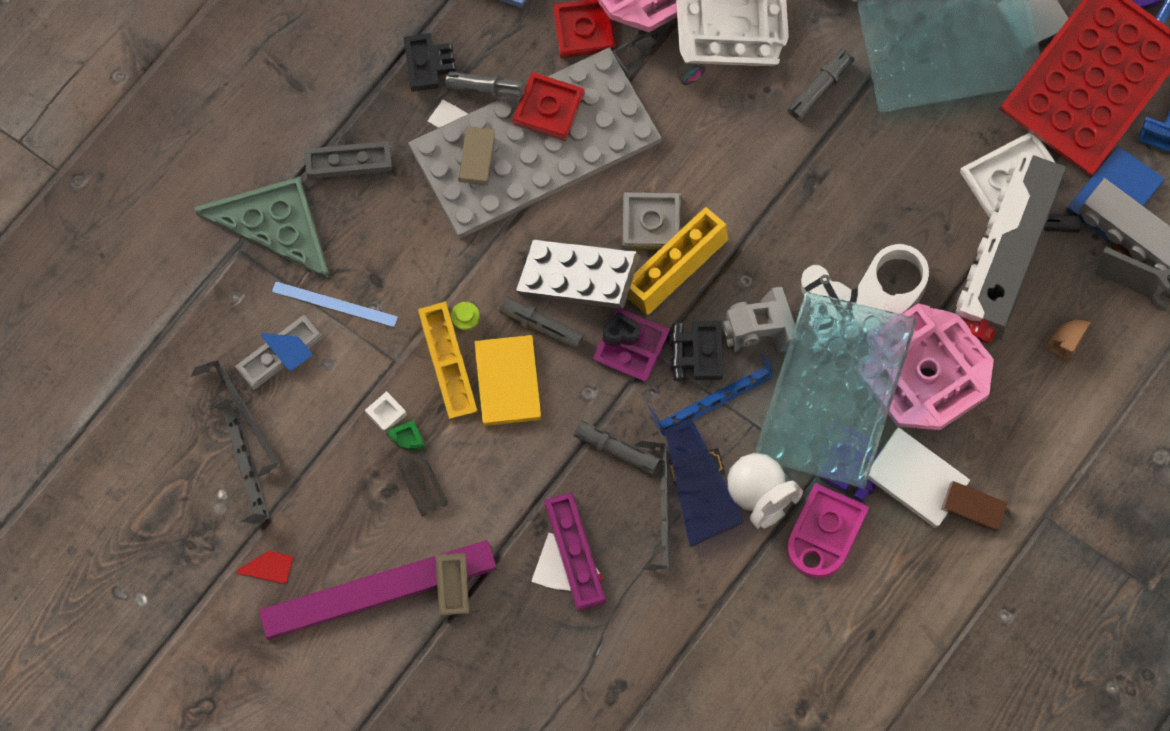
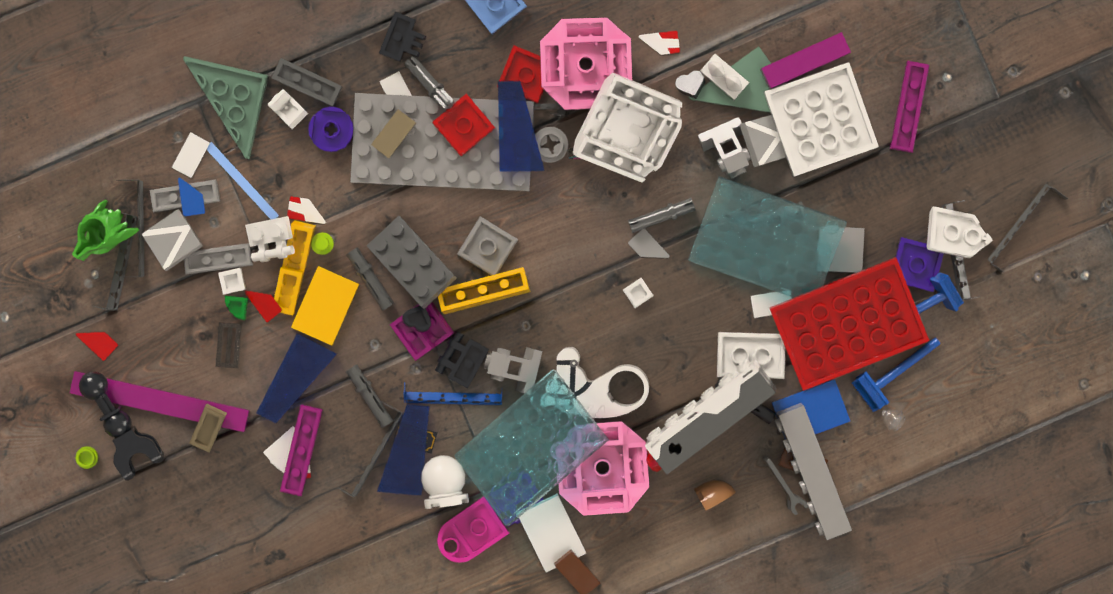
camera: 30 degrees right, 20 degrees up
(206, 436) = (102, 231): none -> bright green piece
(260, 307) = (190, 155): none -> white sticker
(291, 403) = (172, 240): none -> light grey tile
(327, 700) = (86, 457): none -> lime plate
(342, 197) = (287, 108): none -> white bracket
(345, 637) = (119, 425): none -> black piece
(354, 398) = (218, 259): none -> light grey tile
(397, 334) = (270, 231): none -> white plate
(408, 208) = (322, 120): none -> dark purple plate
(422, 295) = (303, 210): none -> white sticker
(438, 417) = (264, 304): none -> red sticker
(519, 469) = (296, 373): none -> clear blue wing
(613, 85) = (516, 134): none -> clear blue wing
(654, 69) = (555, 135): none -> light grey gear
(825, 127) = (647, 246): none -> light grey sticker
(846, 177) = (638, 292): none -> white tile
(989, 116) = (762, 302): none -> white sticker

